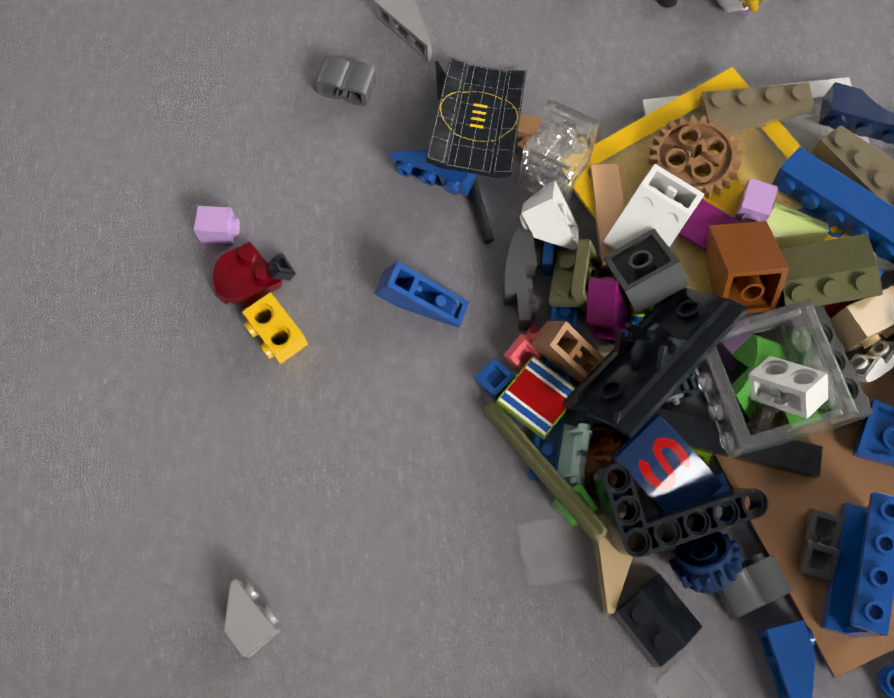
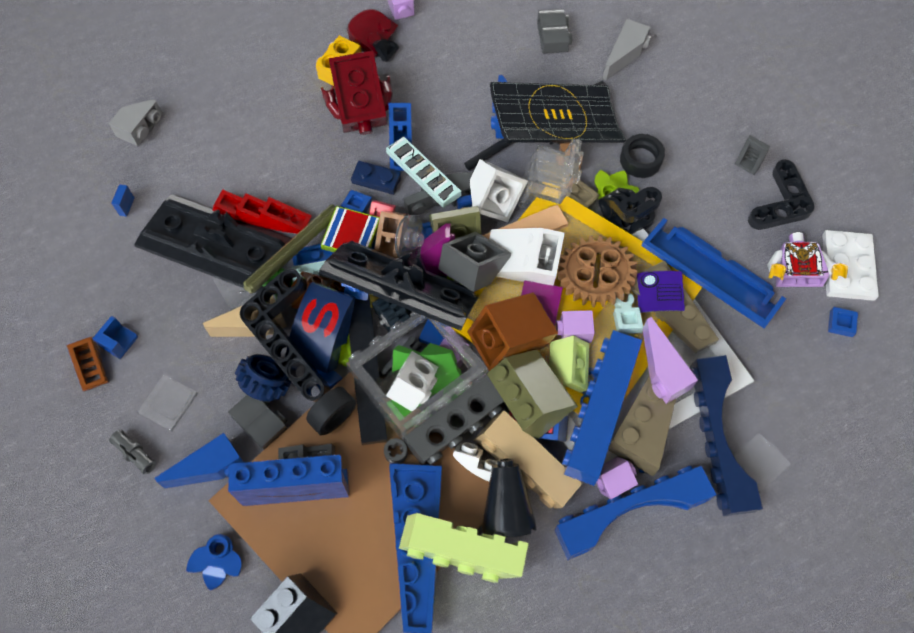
camera: 65 degrees right, 5 degrees down
(350, 318) = (359, 93): none -> dark red torso
(370, 672) = (122, 200): none -> blue tile
(462, 345) = (376, 177): none -> dark blue plate
(463, 496) = (267, 214): none -> red slope
(480, 570) = (208, 240): none -> black hinge
(495, 284) = (423, 172): none -> tile
(558, 47) = (646, 142): none -> black tyre
(586, 103) = (607, 184): none -> lime plate
(586, 327) = (409, 236): none -> clear dish
(626, 96) = (616, 203): none -> black piece
(657, 621) = (210, 363): black slope -> none
(724, 56) = (708, 269): none -> blue slope
(741, 109) = (660, 291): none -> dark purple sticker
(759, 152) = (626, 318): none -> light aqua plate
(785, 492) = (331, 410): none -> black tyre
(845, 134) = (667, 369): none -> lavender slope
(845, 446) = (393, 443): none -> dark grey bush

